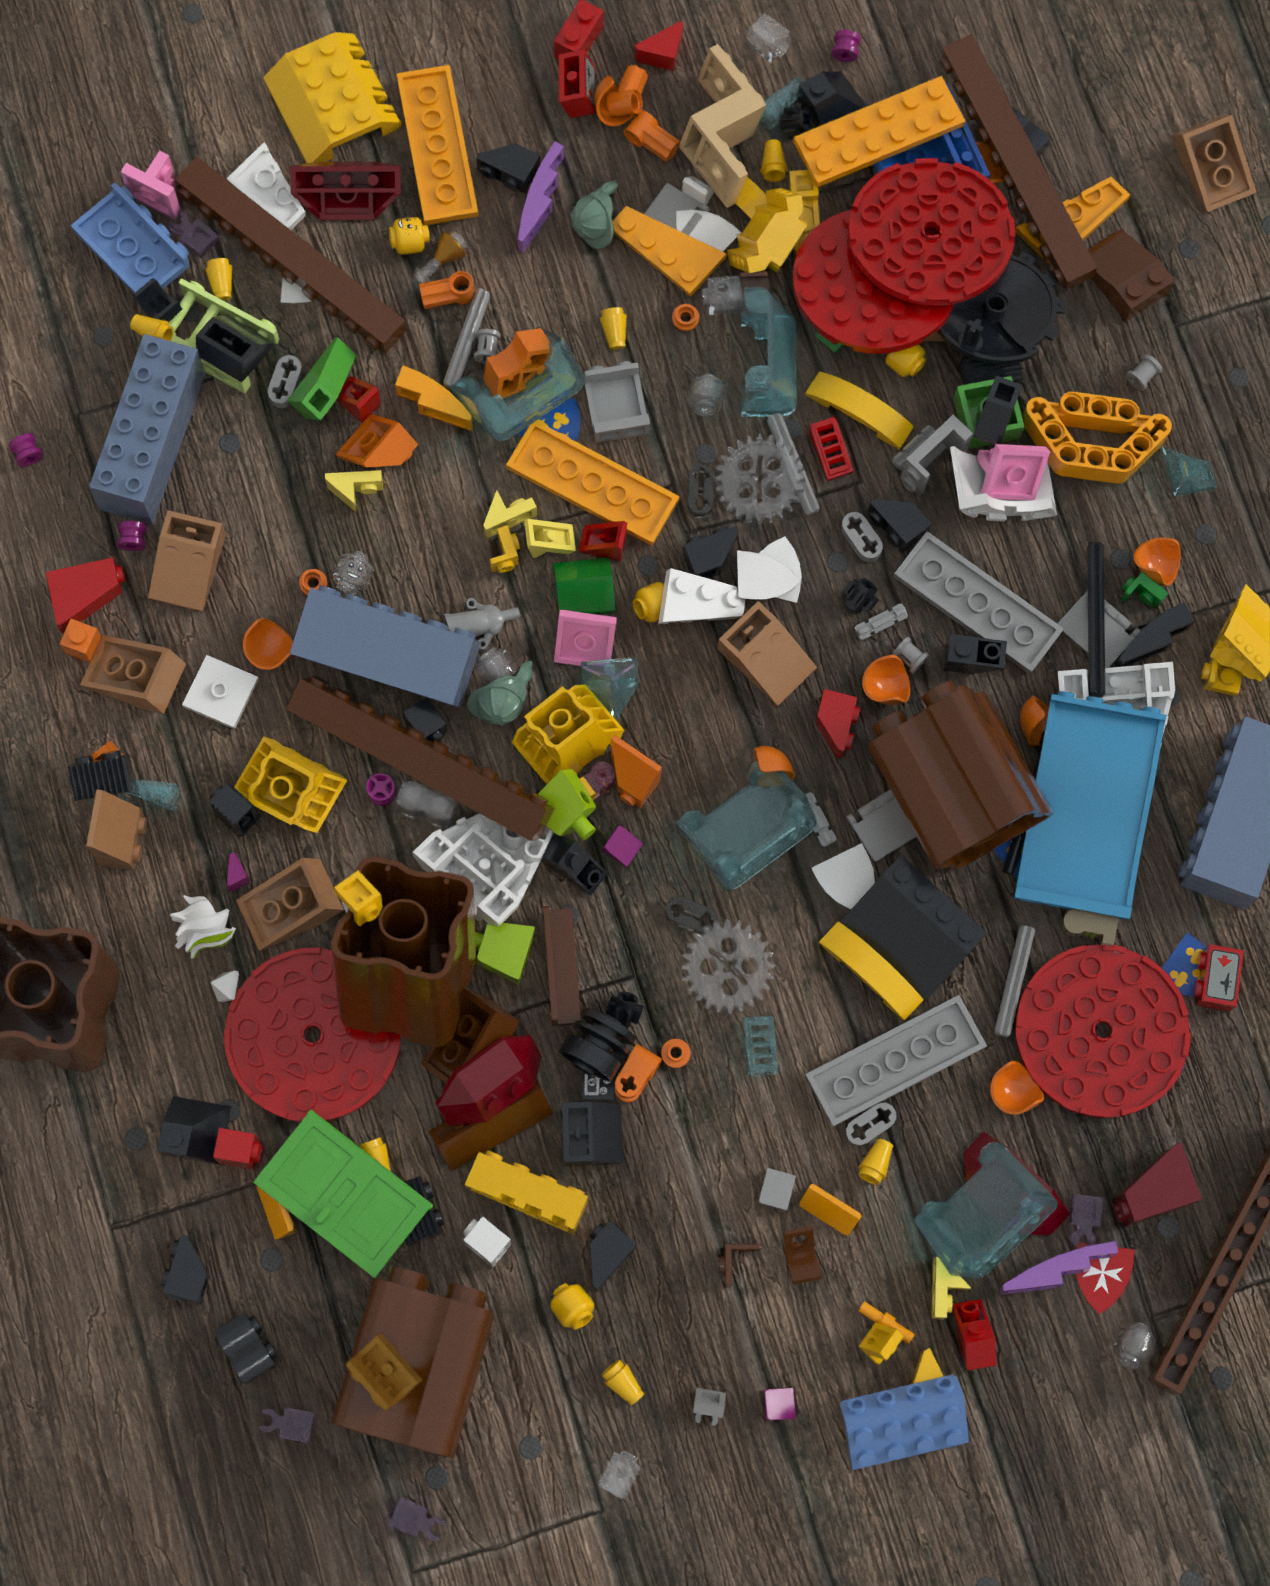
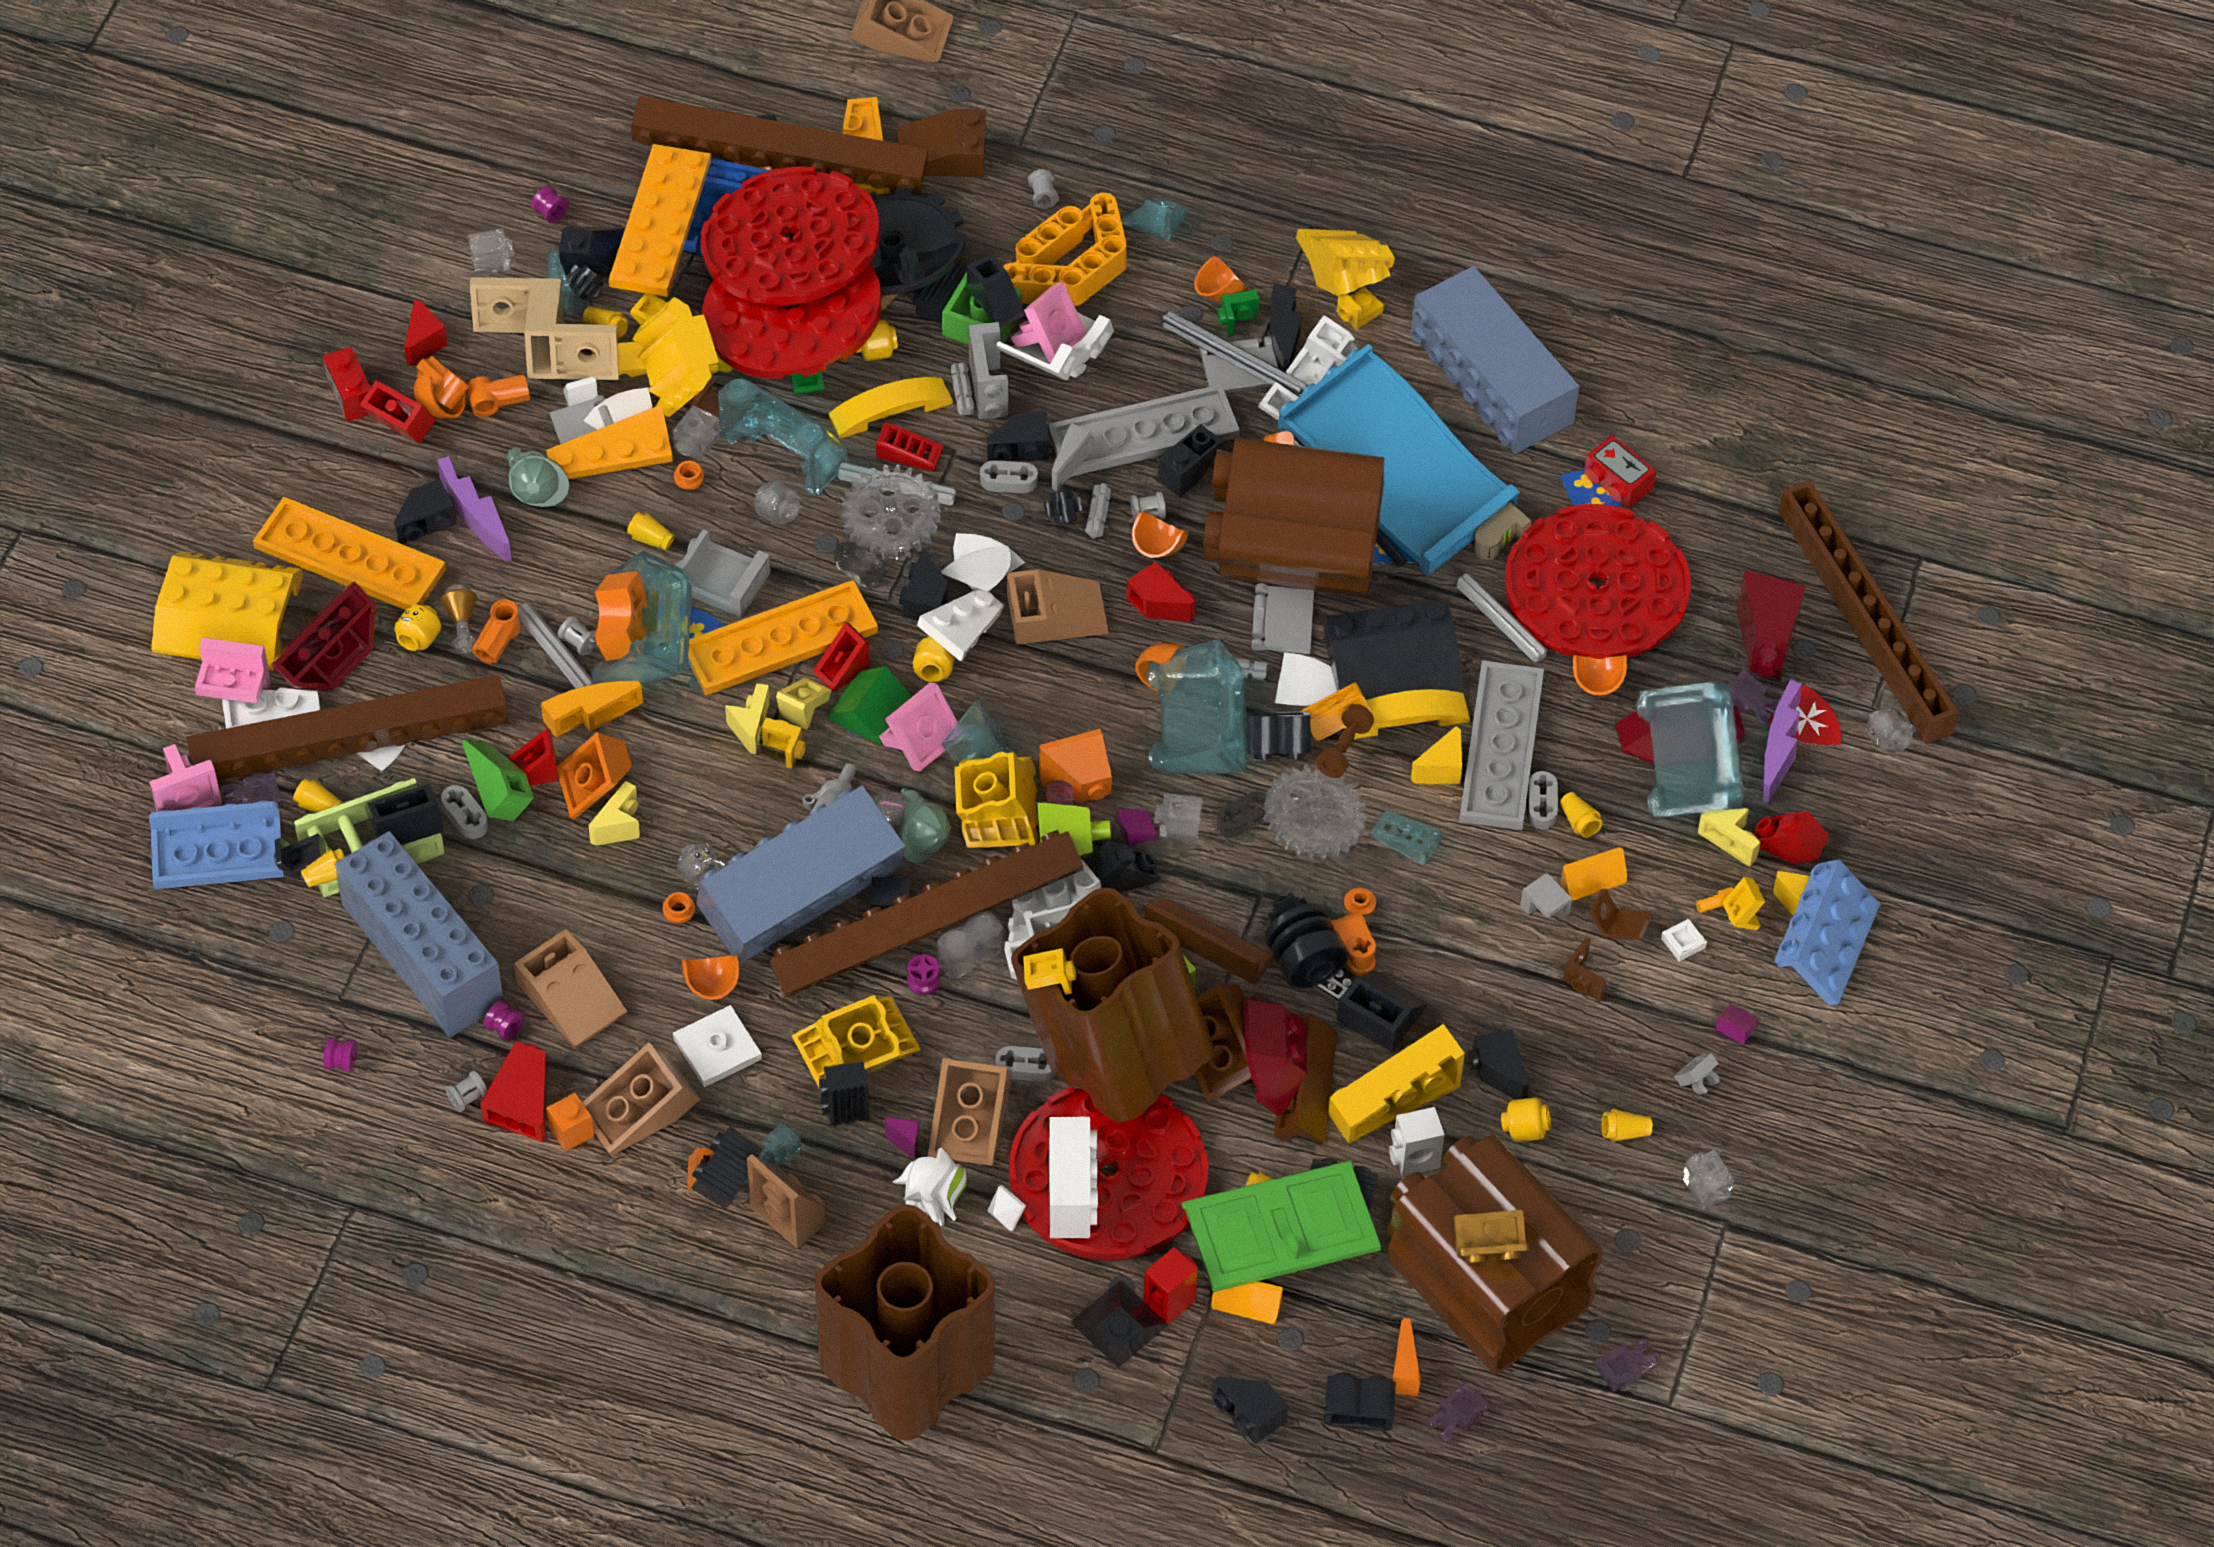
camera: 50 degrees left, 20 degrees down
(57, 553) = (466, 1091): none -> light grey bush
(267, 146) = (232, 671): none -> bright pink bracket
(267, 1018) = (1072, 1177): none -> white brick
(298, 1360) = (1406, 1366): none -> orange slope
(650, 872) = (1179, 816): none -> clear brick
(775, 892) = (1278, 733): none -> black brick
(824, 1314) = (1683, 940): none -> white tile
(828, 942) = (1357, 720): none -> reddish brown wheel
(830, 919) = (1327, 713): none -> light orange slope
(845, 1028) = (1440, 762): none -> yellow slope
(906, 568) = (1071, 454): none -> light grey slope

